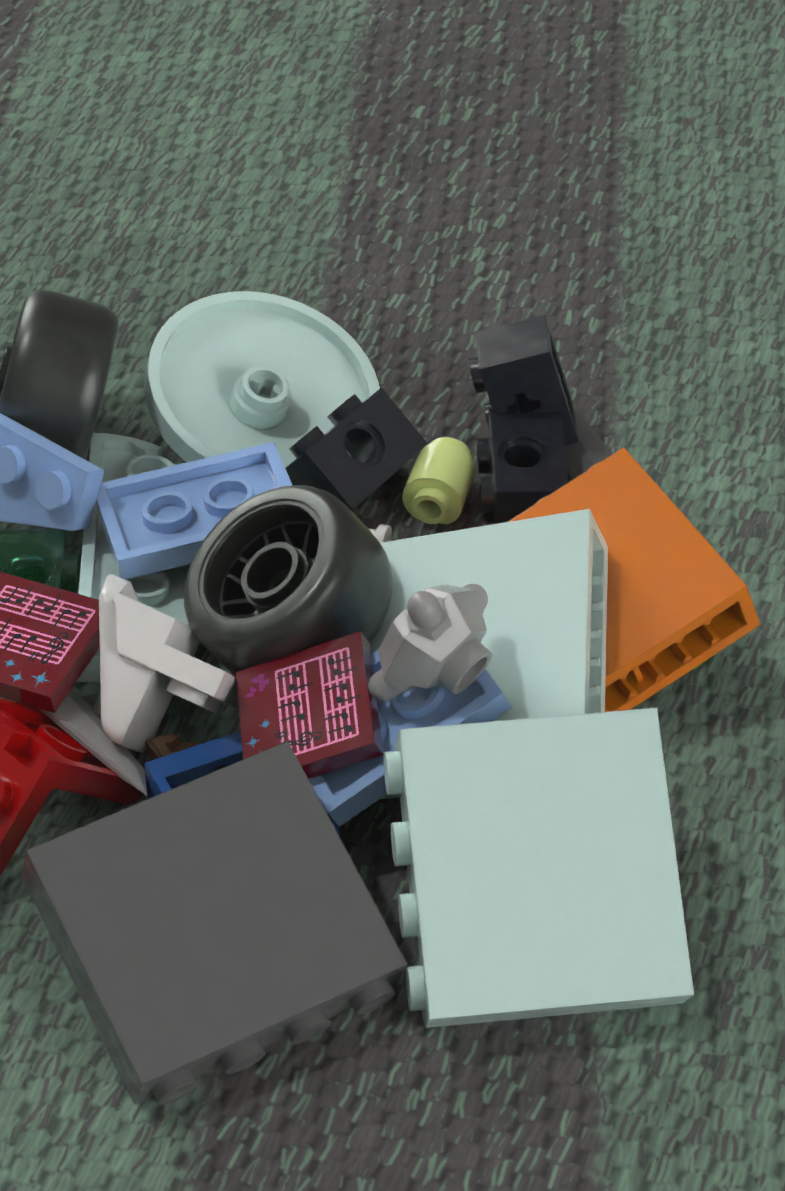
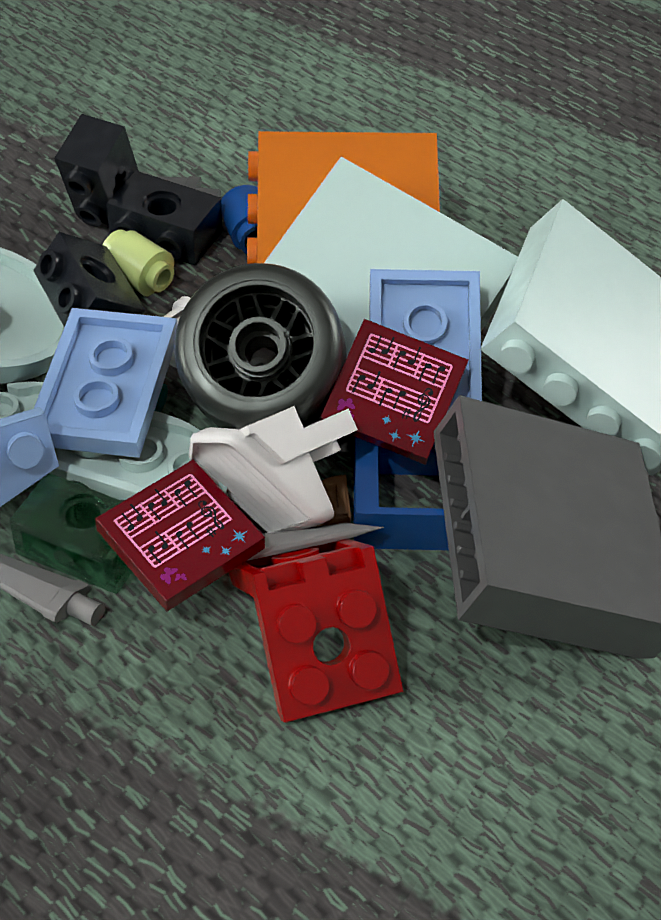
camera: 65 degrees left, 5 degrees up
(434, 643) = (428, 274): light grey rock -> none

